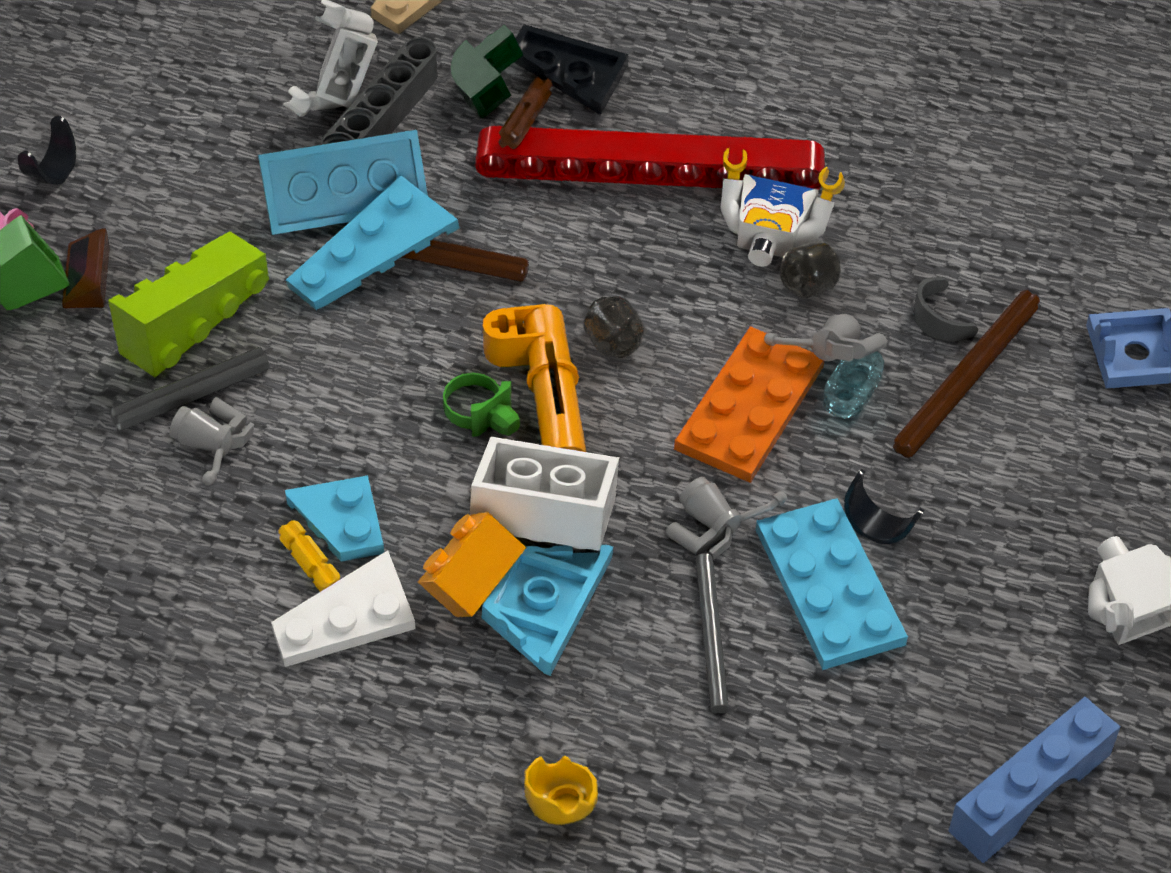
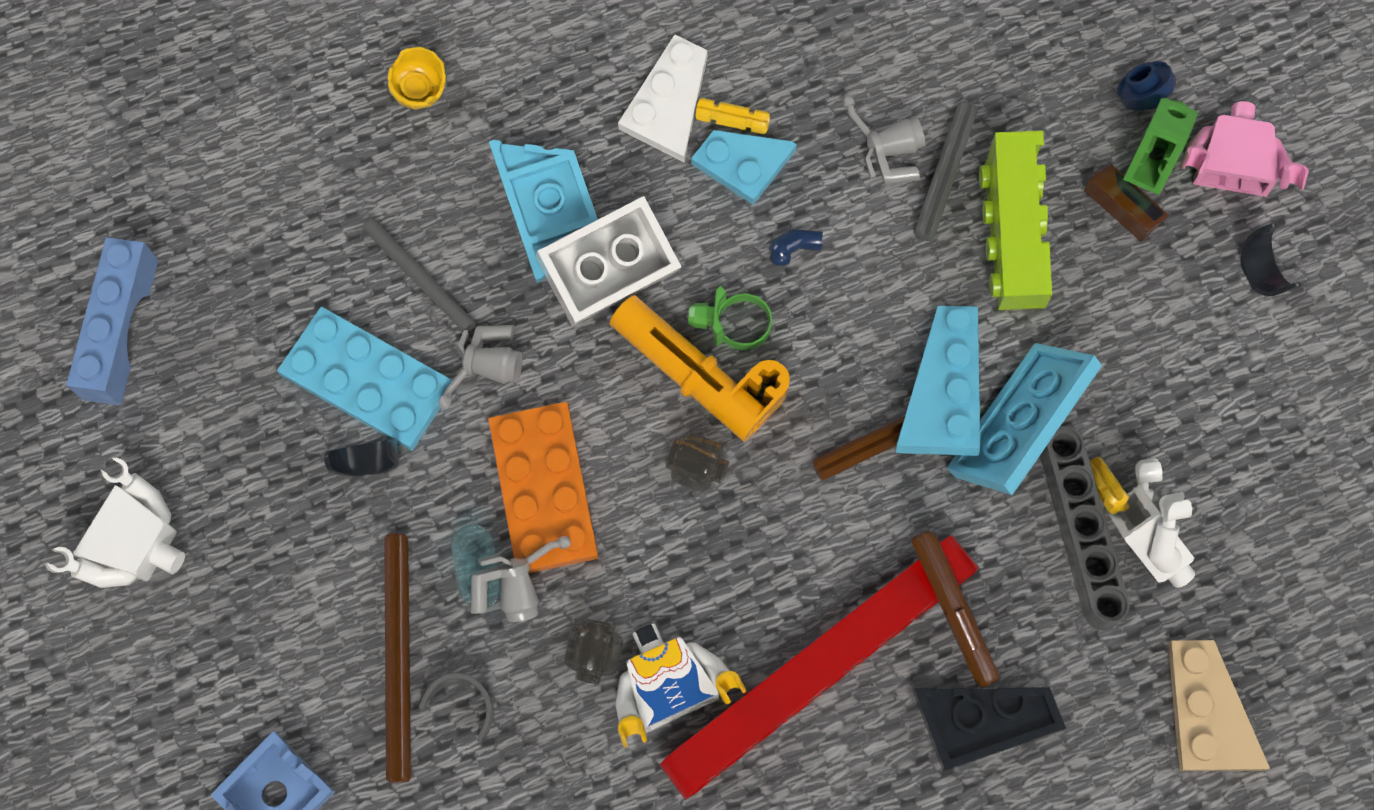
camera: 145 degrees right, 20 degrees up
(338, 102) = (1108, 487): none -> yellow axle
(371, 426) = (791, 241): none -> dark blue arm
(470, 563) = (606, 170): light orange brick -> none
(479, 70) = (1043, 626): dark green brick -> none

